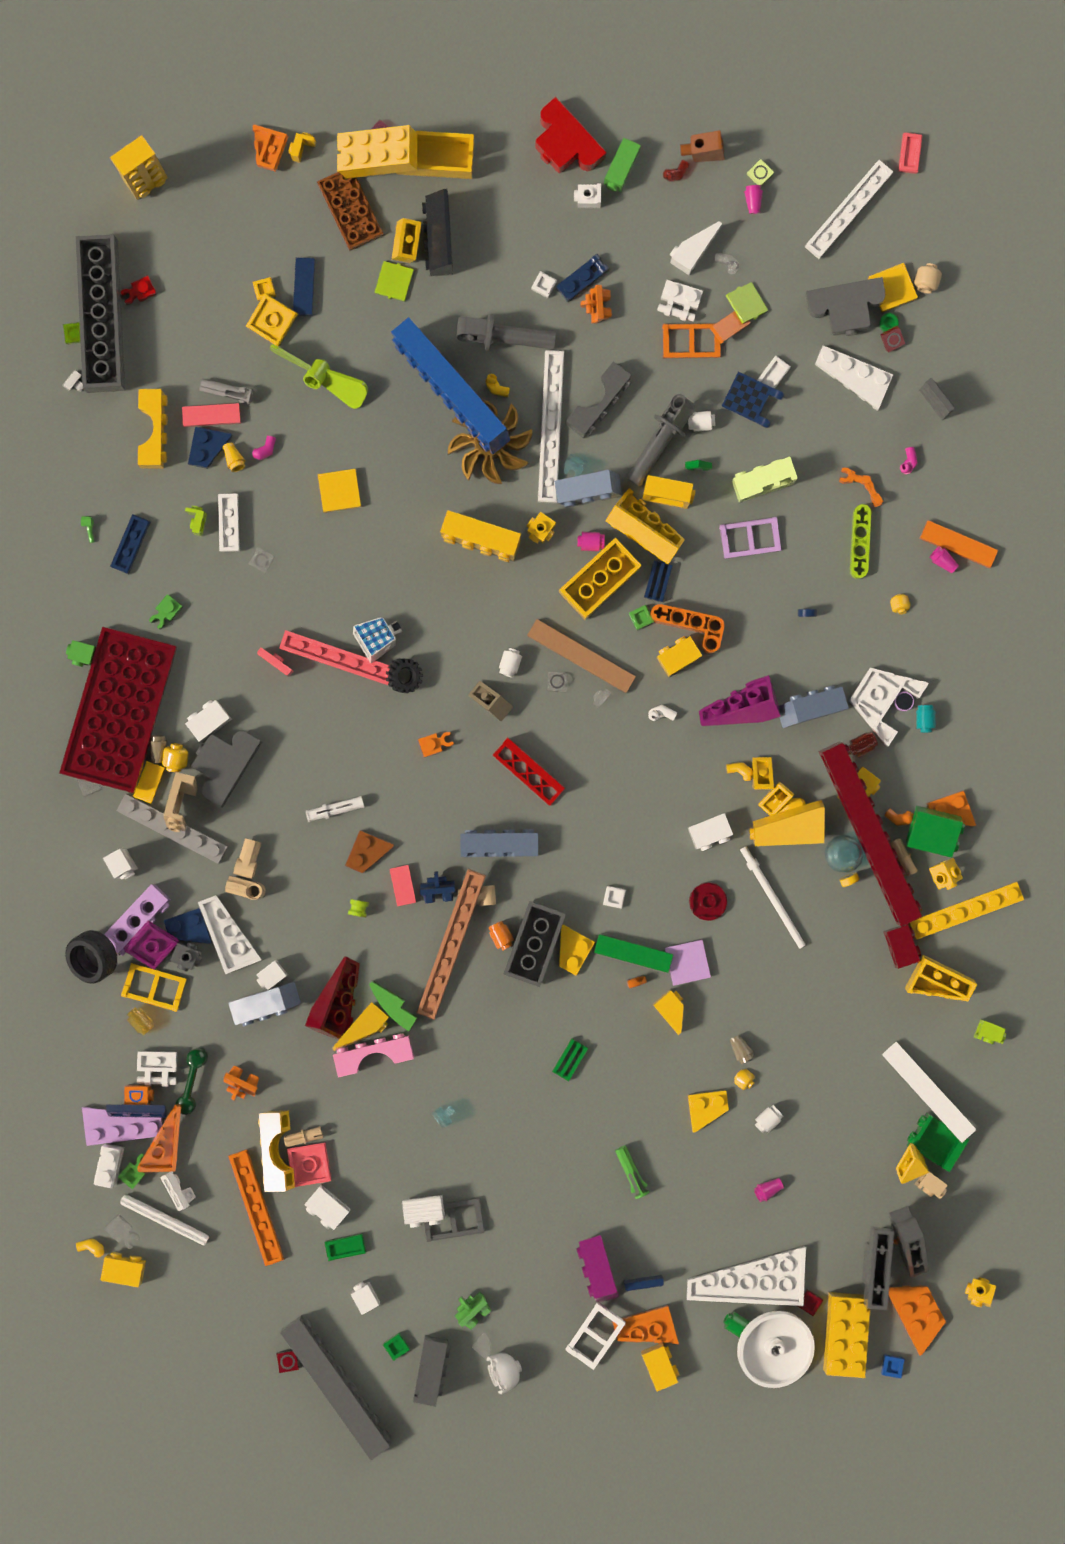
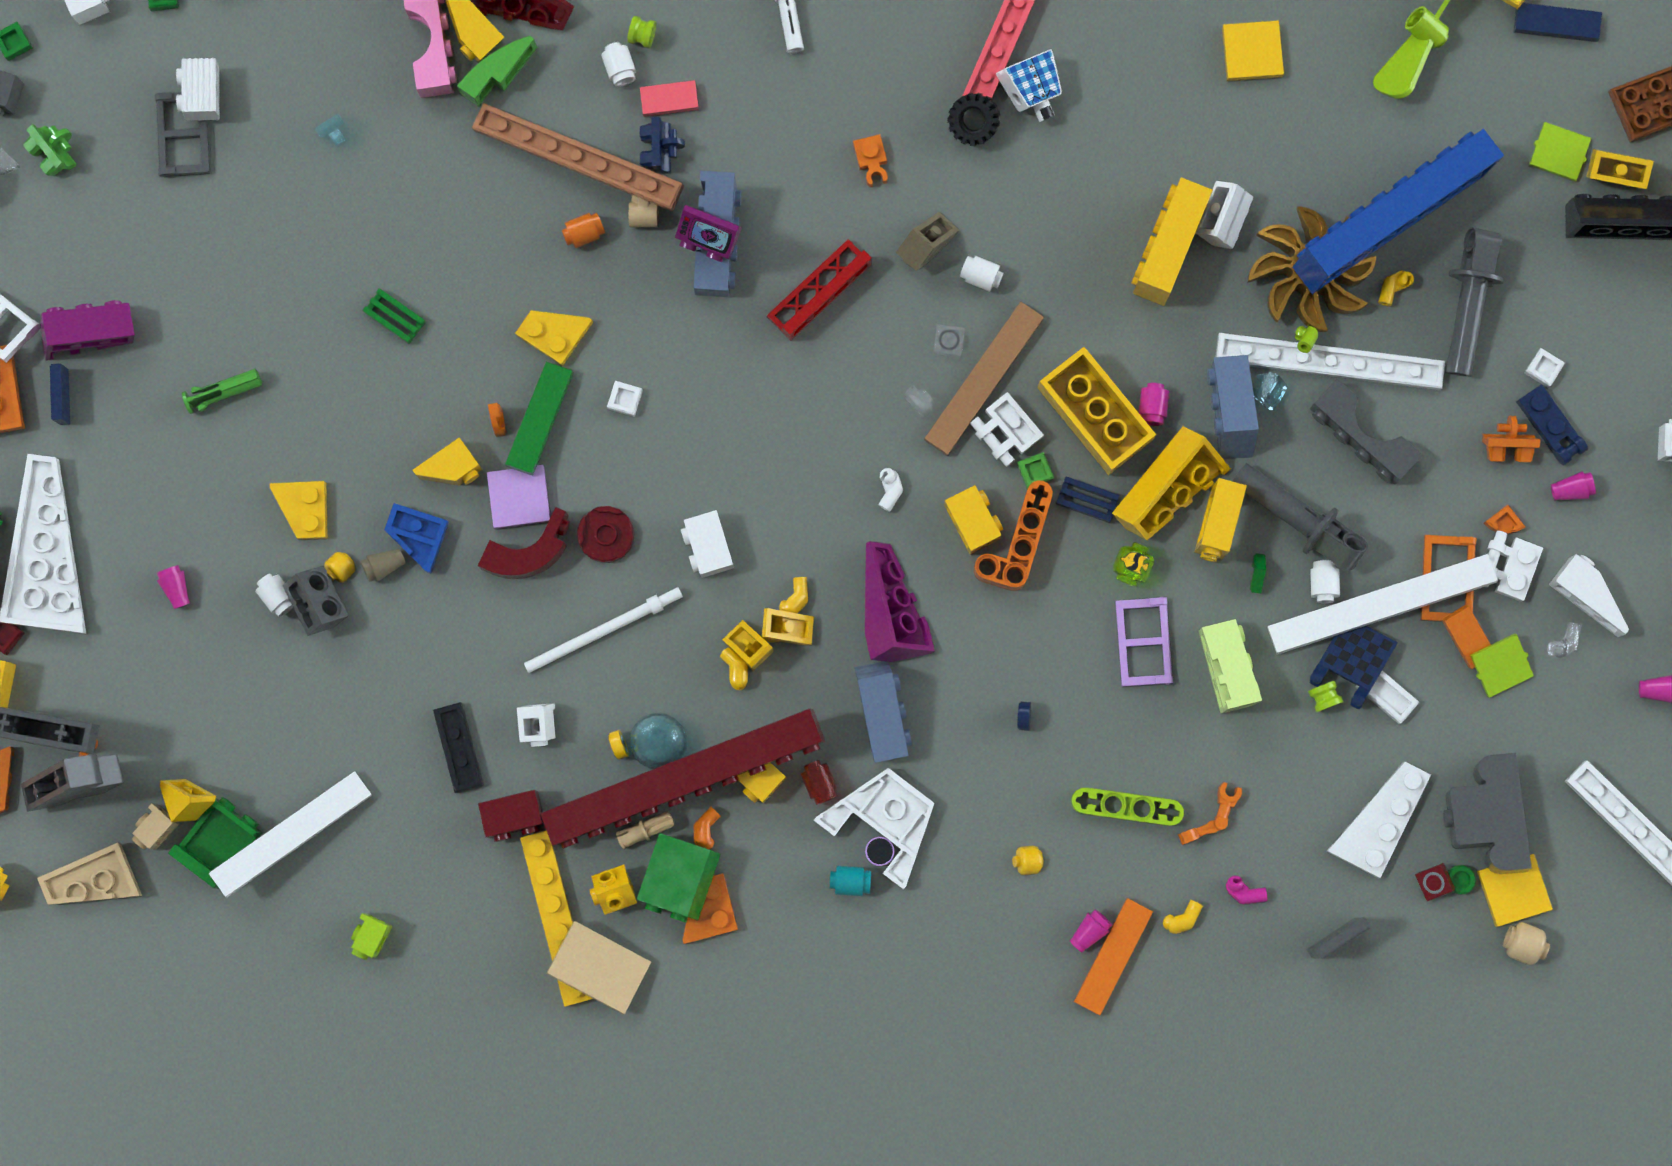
camera: 100 degrees right, 5 degrees down
(366, 852) = (723, 51): dark orange wing -> none
(382, 922) = (619, 64): none -> white brick
(458, 501) = (1224, 214): none -> white brick
(504, 847) = (707, 232): none -> slope
(534, 944) = (566, 274): dark grey brick -> none
(537, 441) = (1306, 338): none -> lime arm
(544, 522) = (1186, 335): yellow brick -> none
(611, 634) = (1013, 423): none -> white plate
(624, 261) = (1574, 487): none -> dark pink cone
(650, 305) = (1505, 521): none -> orange tile
(701, 547) = (1133, 564): none -> clear neon green head
(713, 382) = (1382, 604): none -> white tile
(719, 1028) = (417, 534): none -> blue wing
(734, 958) = (531, 560): none -> dark red arch
(771, 1091) = (315, 600): none -> dark grey brick
(777, 416) = (1325, 696): none -> lime wheel
(791, 827) = (704, 662): yellow slope -> none
(835, 940) = (528, 726): none -> white brick
(859, 986) = (458, 747): none -> black tile
(932, 499) = (1184, 921): none -> yellow arm
(939, 980) = (454, 866): yellow wedge -> none
(967, 1221) = (91, 878): none -> tan wing
(997, 879) = (598, 967): none -> tan tile

